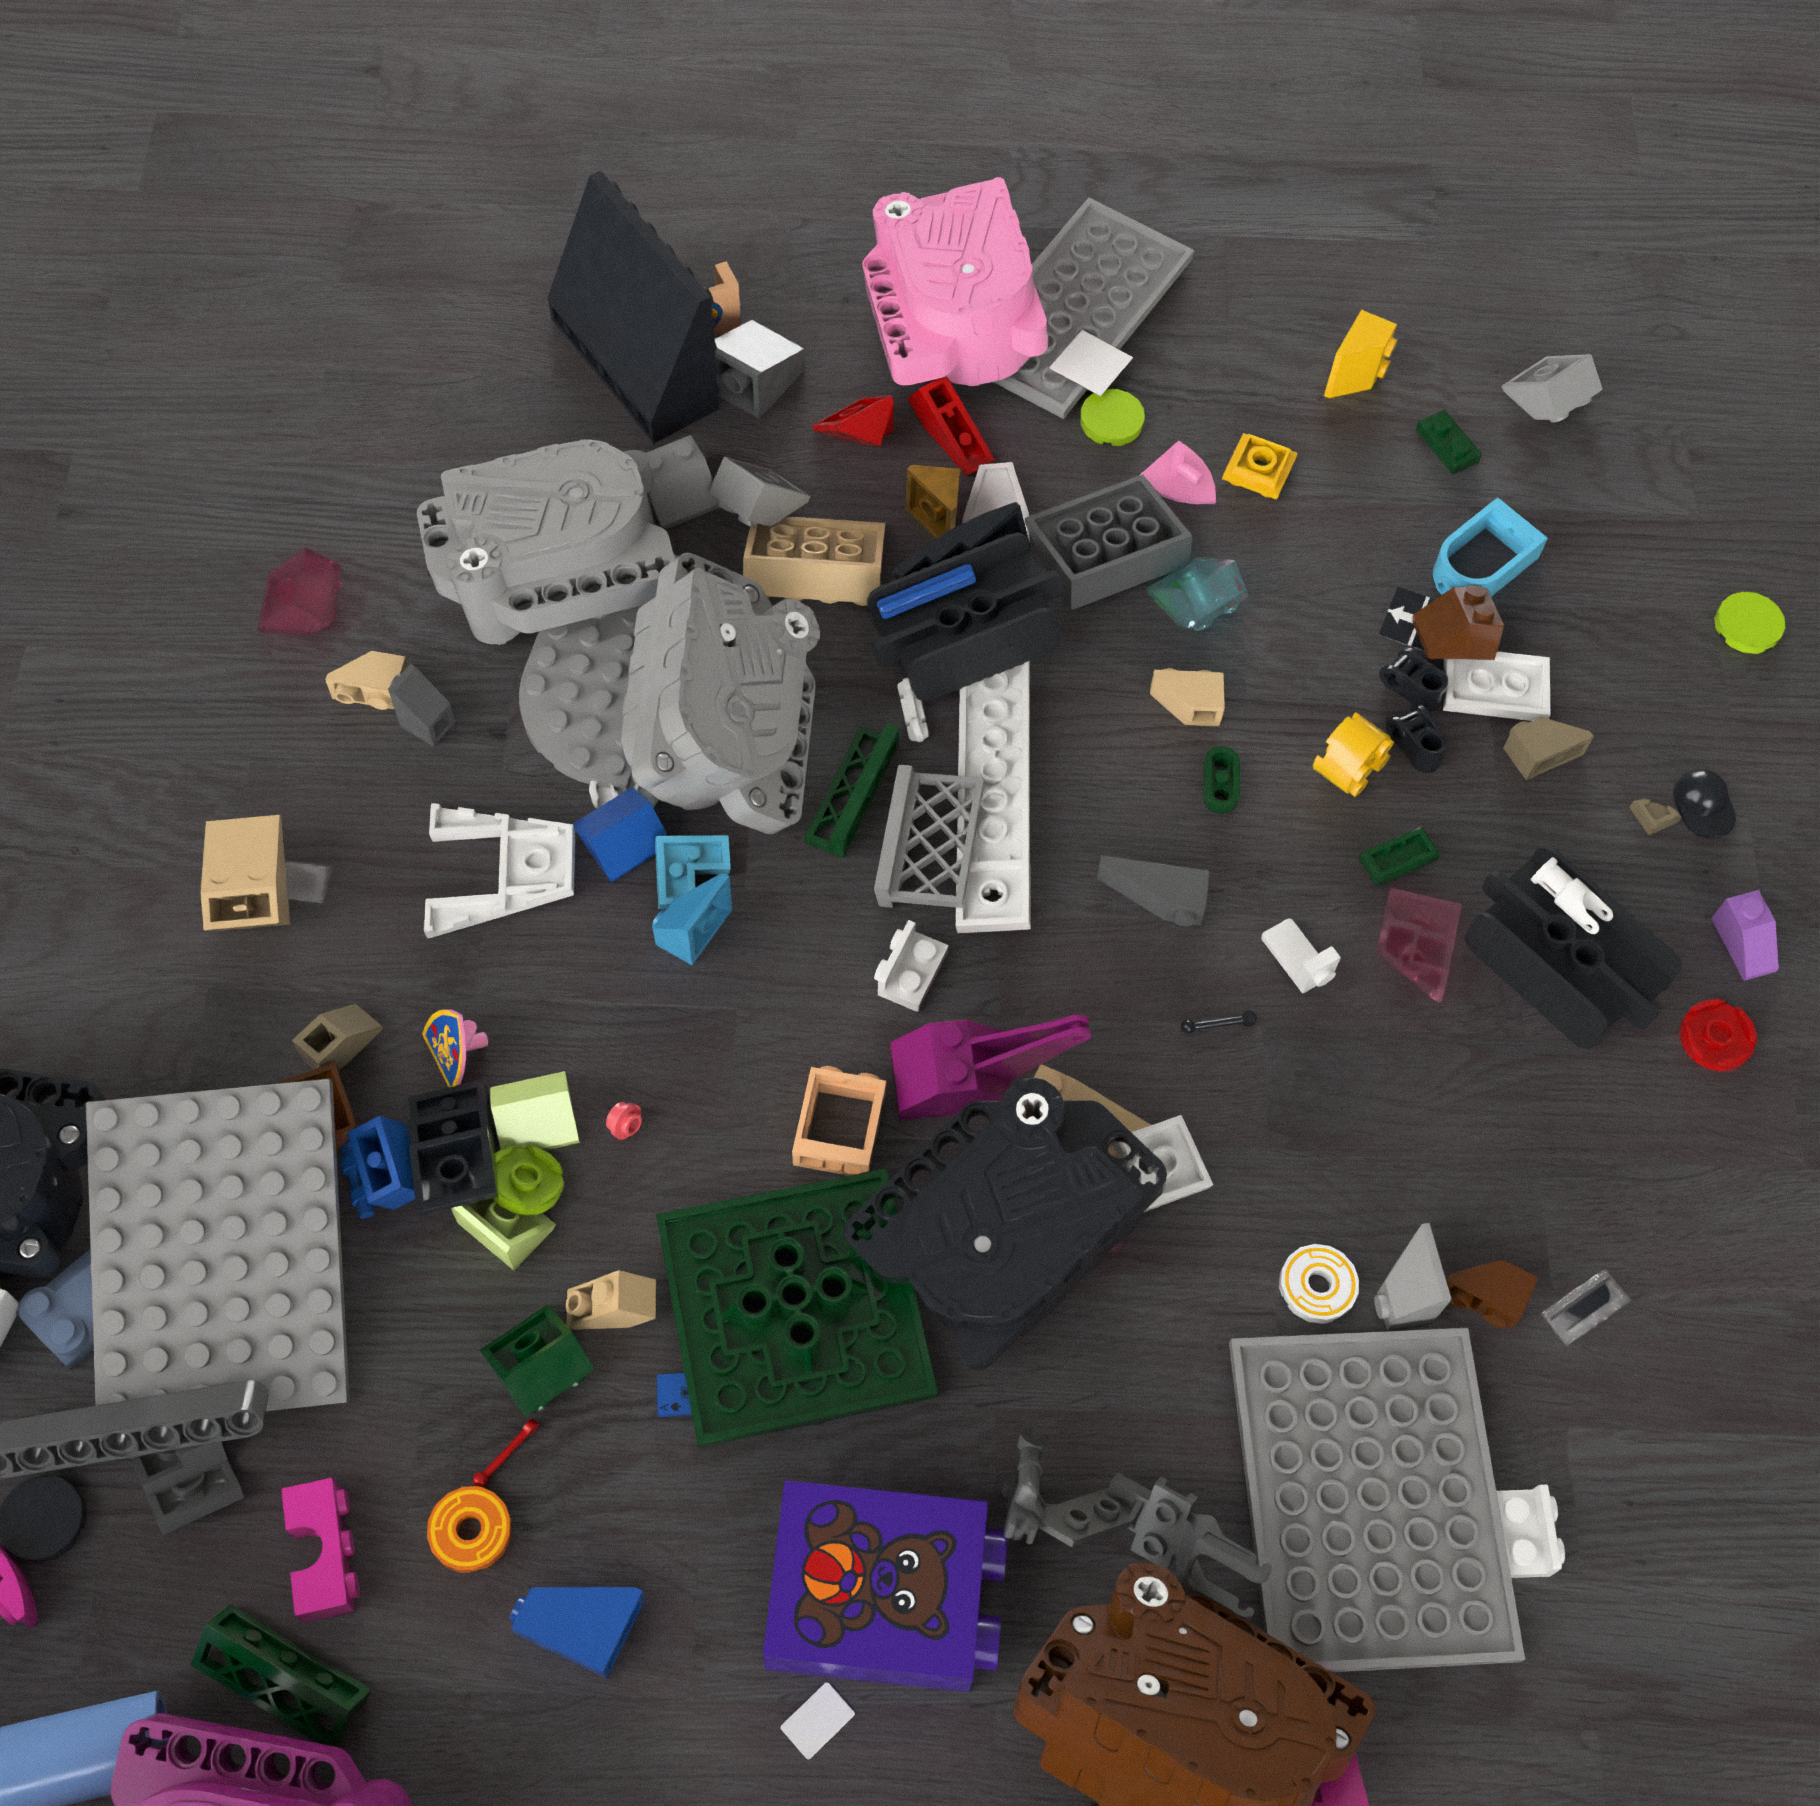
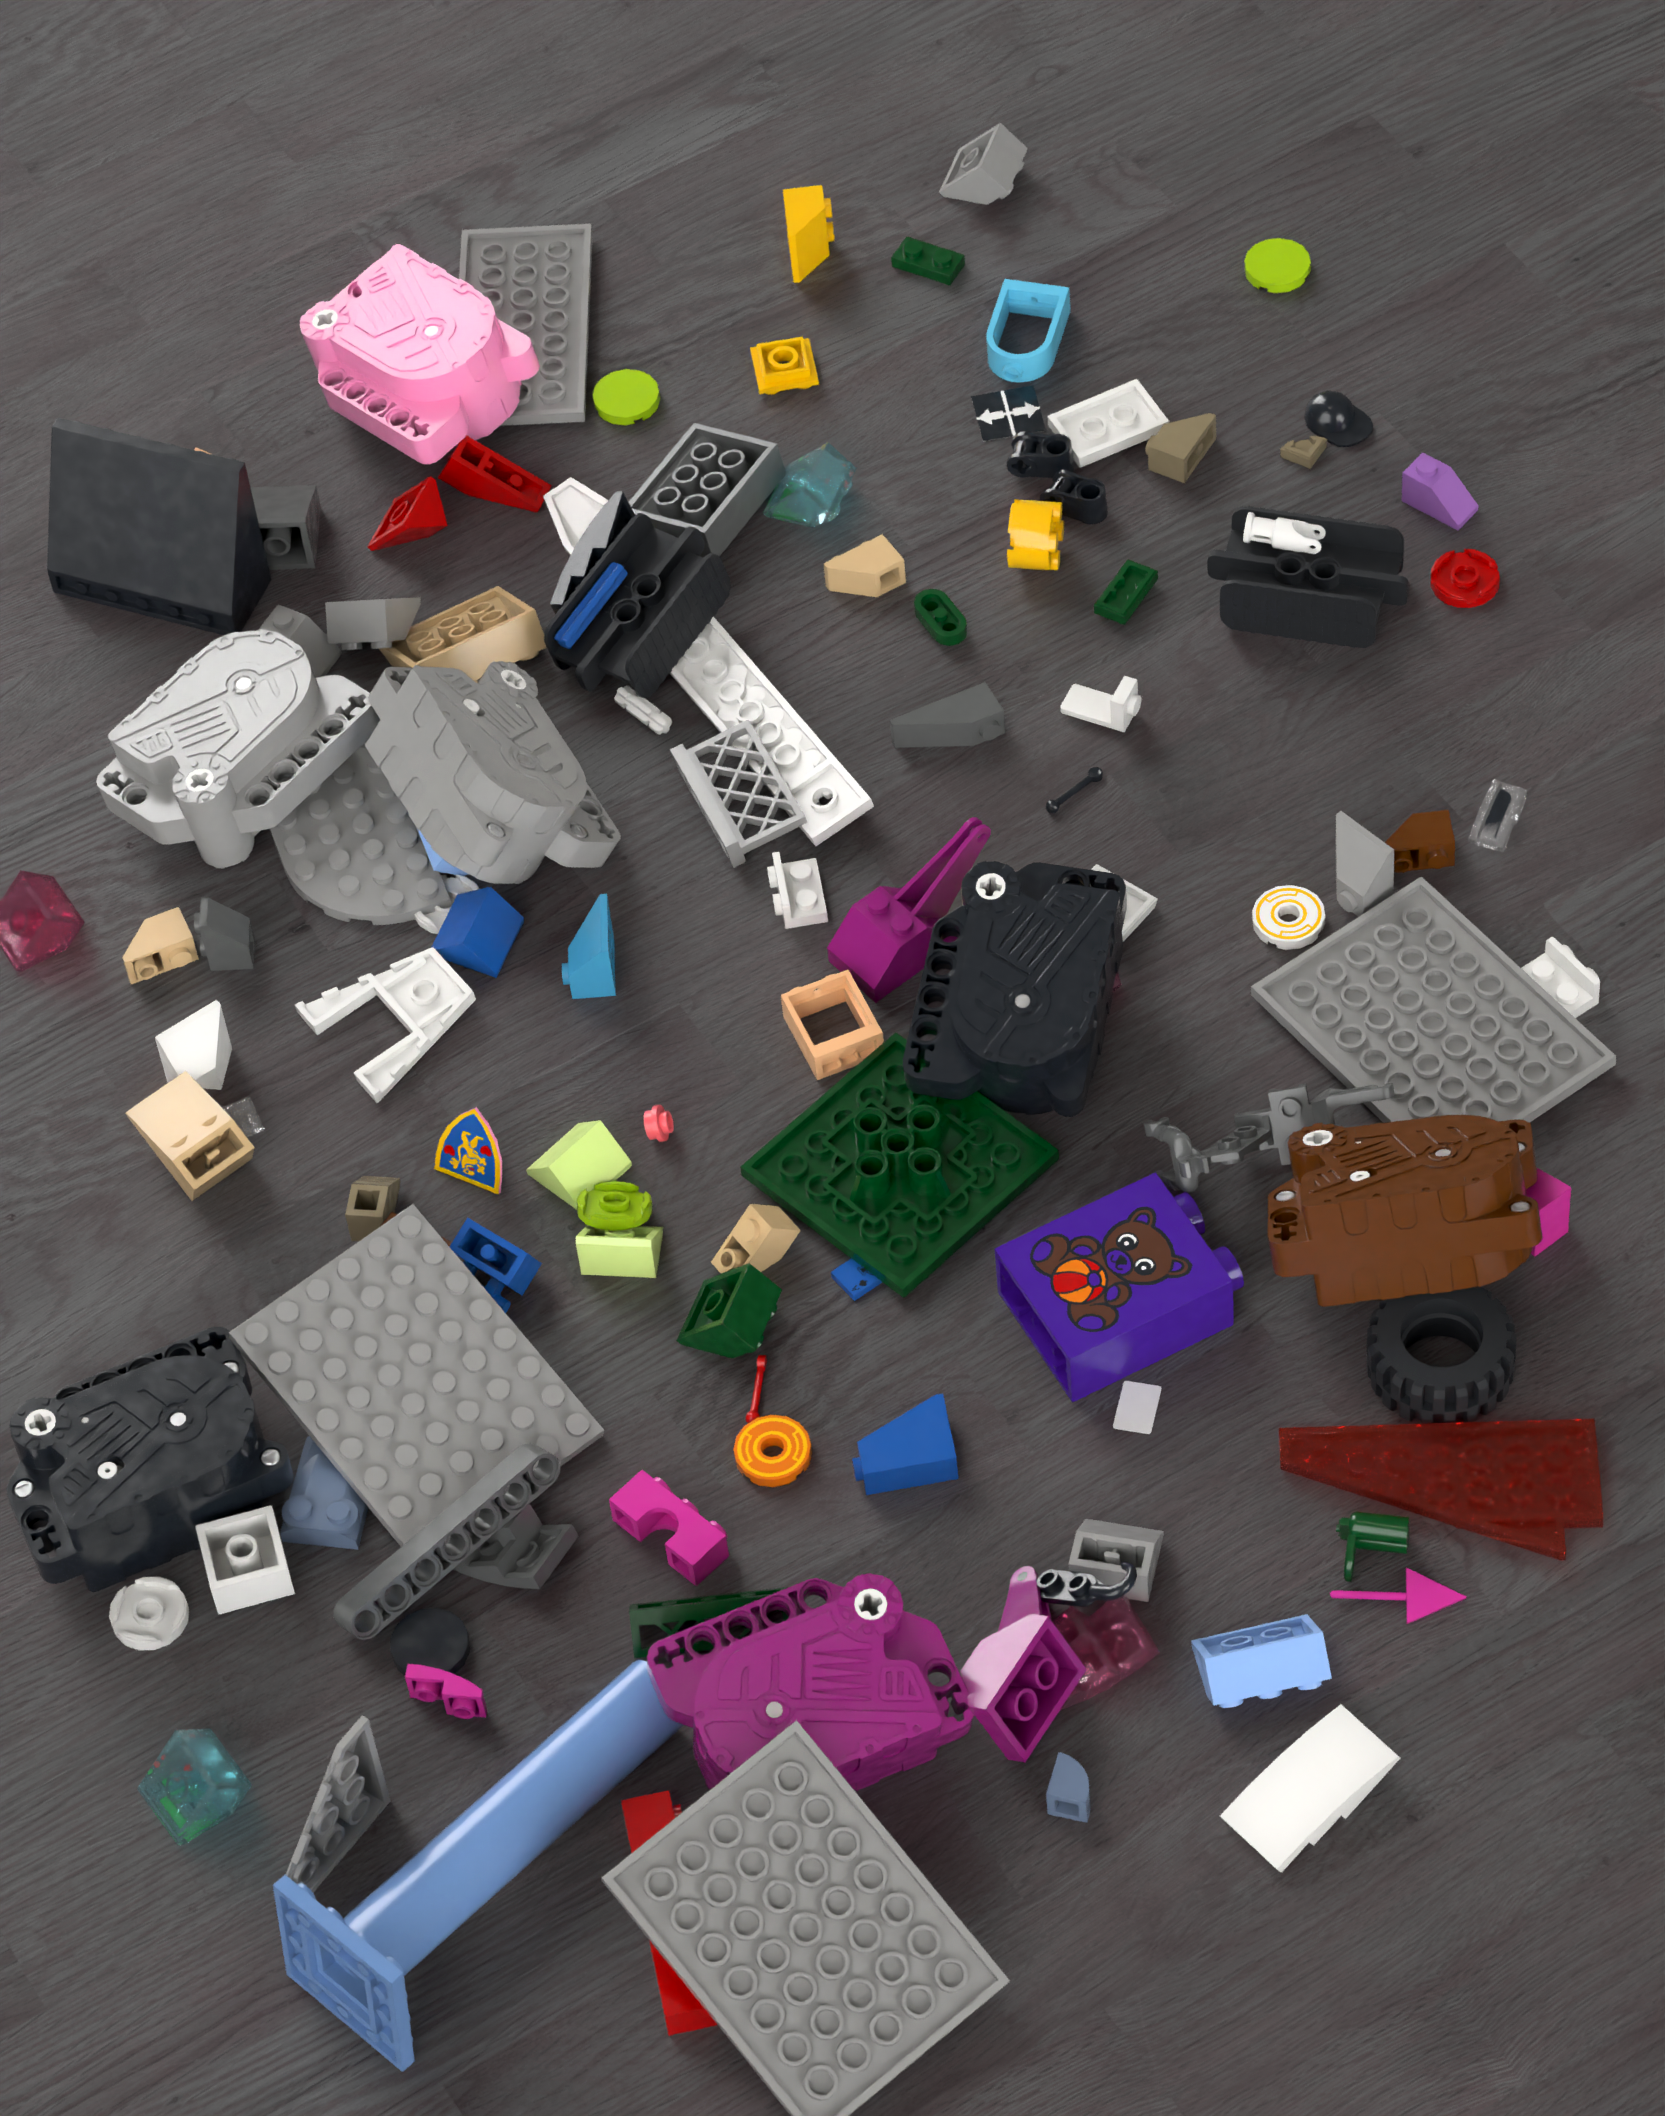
camera: 25 degrees left, 10 degrees down
(315, 798) = (198, 1047): none -> white slope
(452, 1147) = (540, 1211): black slope -> none
(683, 858) = (547, 922): medium azure plate -> none
(859, 793) = (652, 787): dark green fence -> none
(933, 497) = (533, 539): pearl gold slope -> none
(1091, 362) = (575, 361): white sticker -> none
(1182, 476) = (724, 409): bright pink shield -> none
(1419, 938) = (1186, 640): clear pink slope -> none
(1460, 625) = (1047, 392): reddish brown slope -> none

